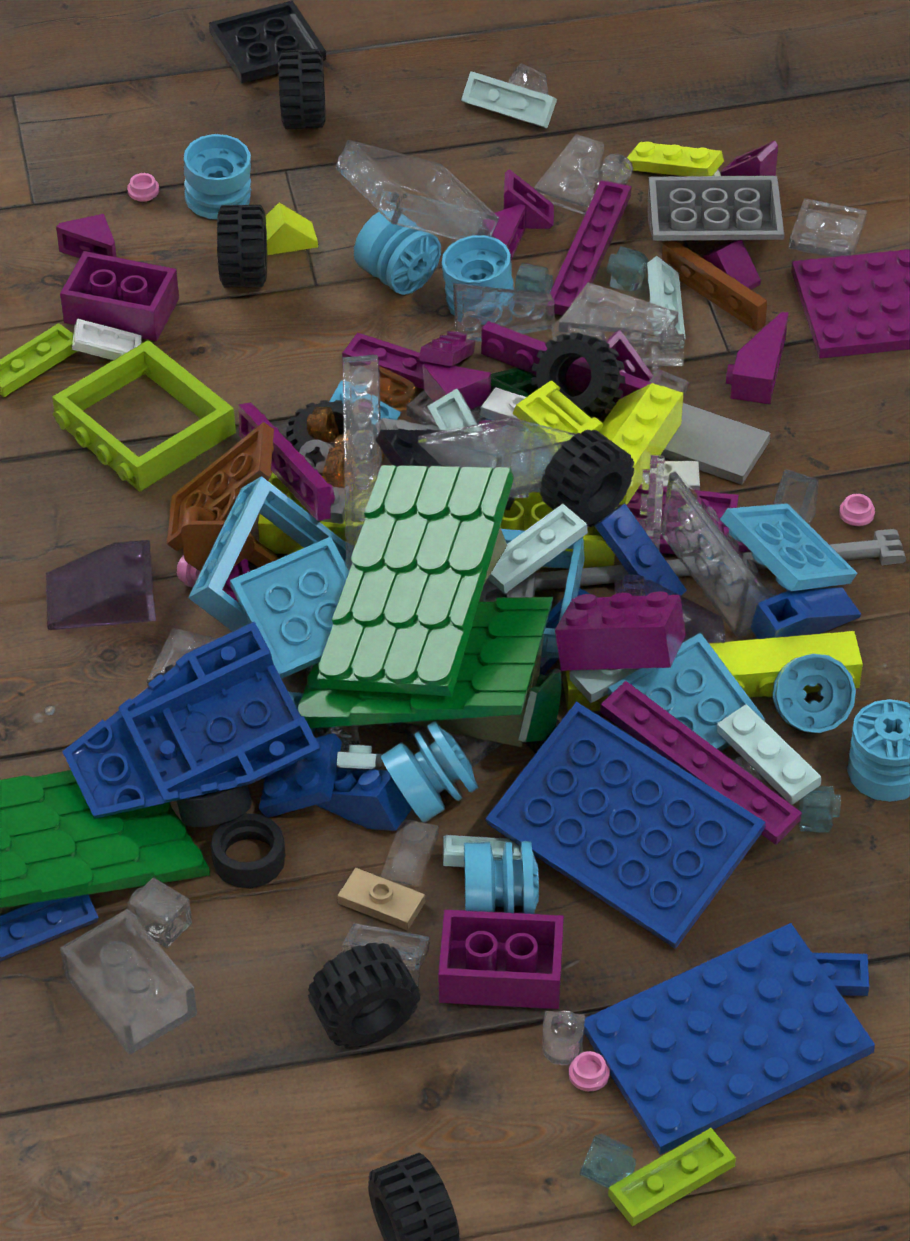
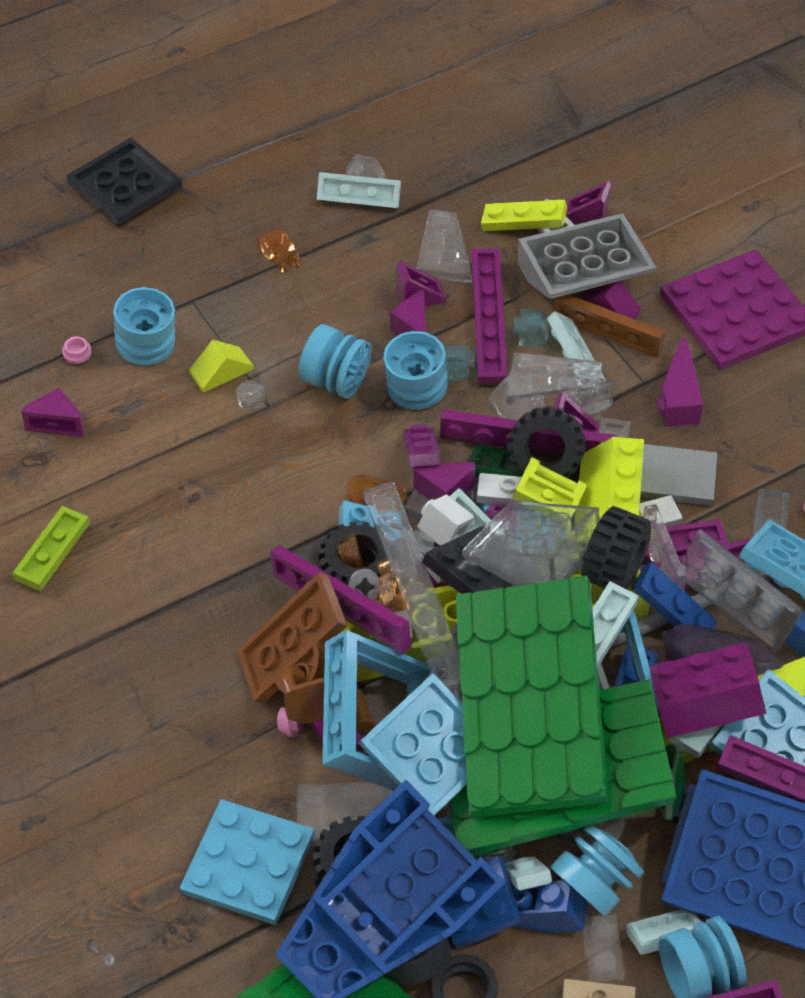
camera: 20 degrees left, 5 degrees up
(86, 678) = (248, 862): none -> medium azure plate
(103, 340) = (113, 513): white plate -> none
(103, 588) = (217, 762): clear purple slope -> none
(120, 294) = (107, 465): magenta brick -> none
(214, 426) = (199, 539): lime window -> none
(242, 246) = (200, 390): black tyre -> none
(301, 268) = (251, 394): none -> clear tile
(302, 89) = (184, 224): black tyre -> none
(384, 174) = (371, 314): clear window -> none
(390, 356) = (348, 463): magenta plate -> none
(398, 136) = (279, 247): none -> clear orange plate
(427, 411) = (444, 519): none -> white brick
(506, 307) = (448, 393): clear wing -> none
(615, 169) = (478, 236): clear wheel -> none
(827, 229) = (676, 248): clear plate -> none

